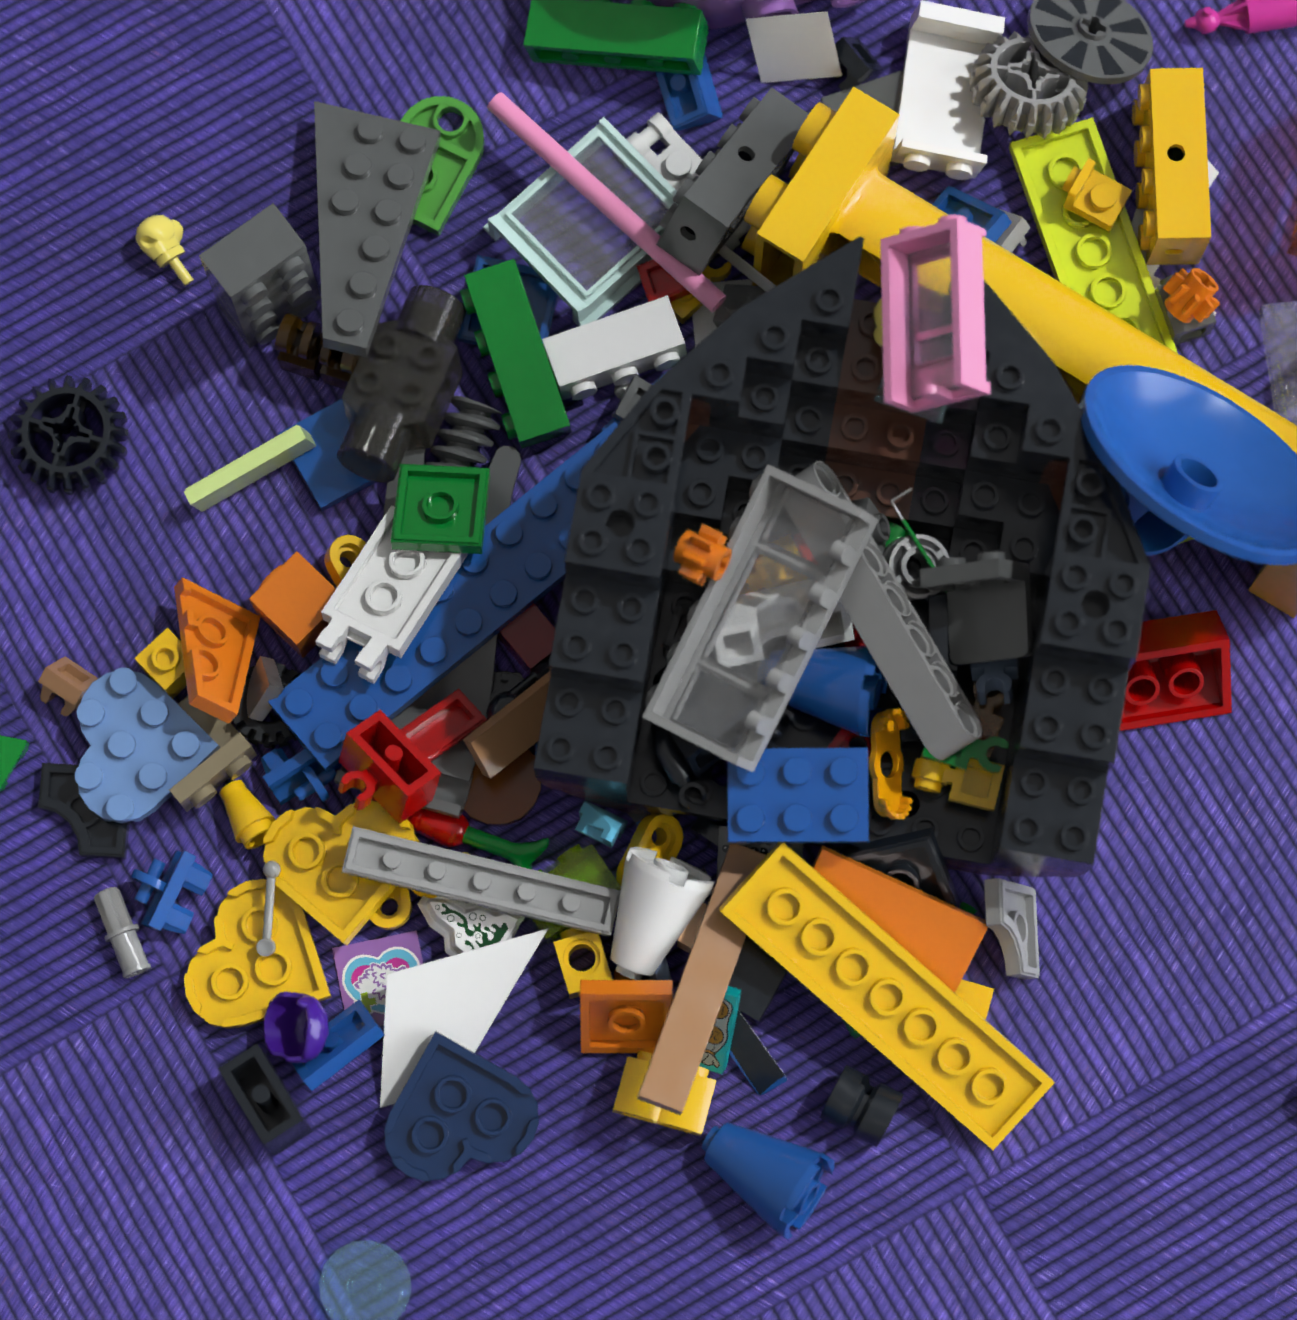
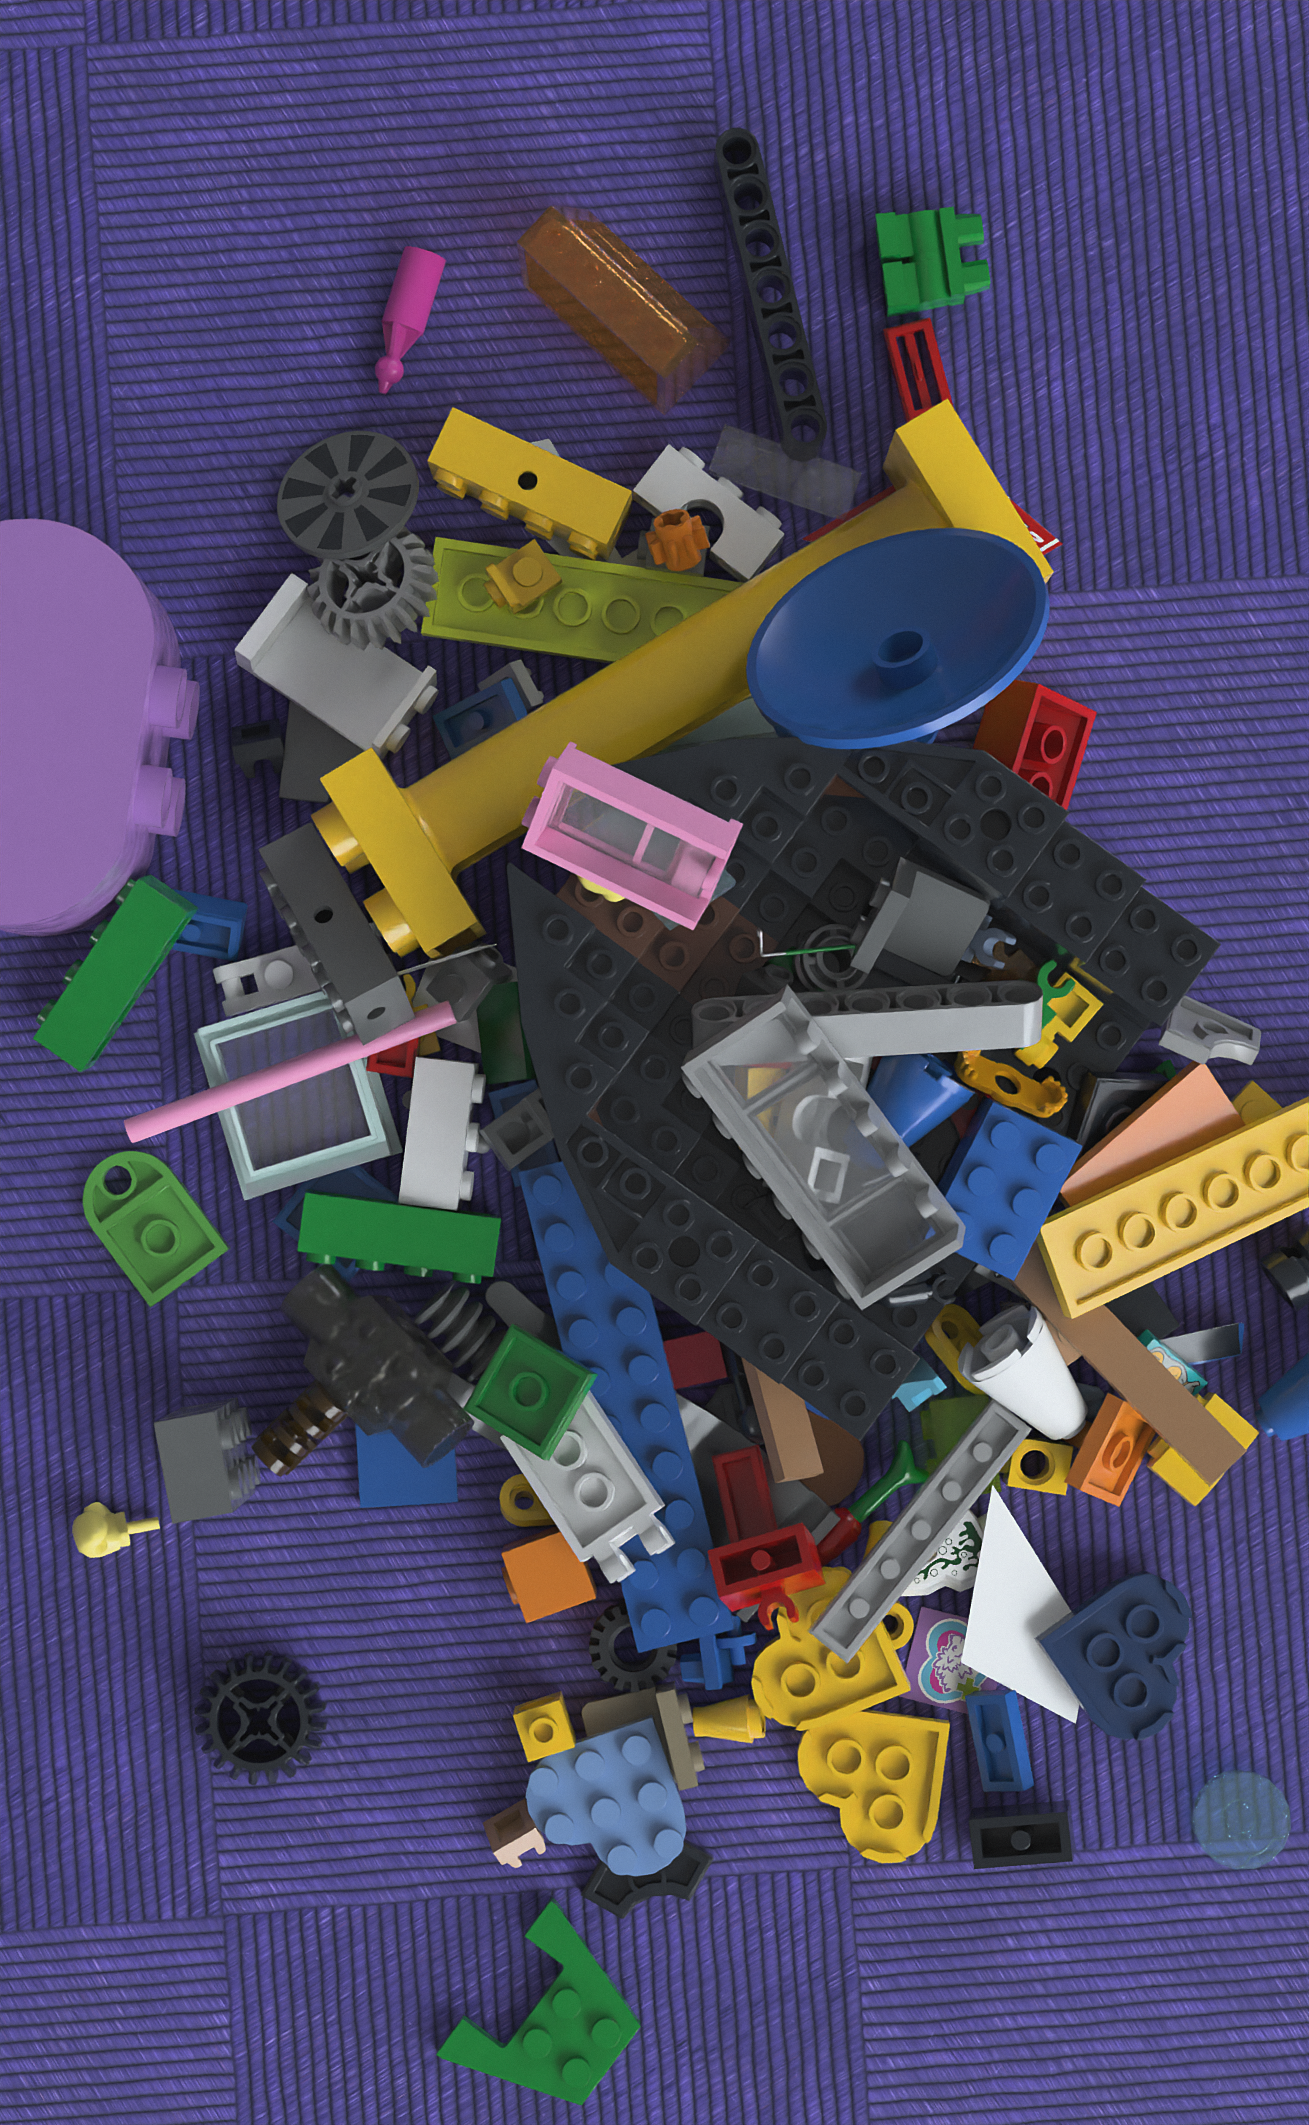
camera: 65 degrees left, 10 degrees up
(121, 932) = (786, 1894): light grey axle -> none
(180, 873) = (785, 1845): blue hips -> none
(215, 648) = (558, 1677): orange wing -> none
(249, 468) = (385, 1555): yellowish green tile -> none
(263, 686) = (620, 1649): flat silver tile -> none
(266, 945) = (873, 1762): light grey hinge -> none
(295, 1027) = (968, 1773): dark purple hair -> none
(367, 200) = (167, 1308): dark grey wing -> none
(702, 555) = (740, 1177): orange gear -> none
(794, 47) = (218, 801): white sticker -> none
(1239, 286) = (680, 483): none -> white arch

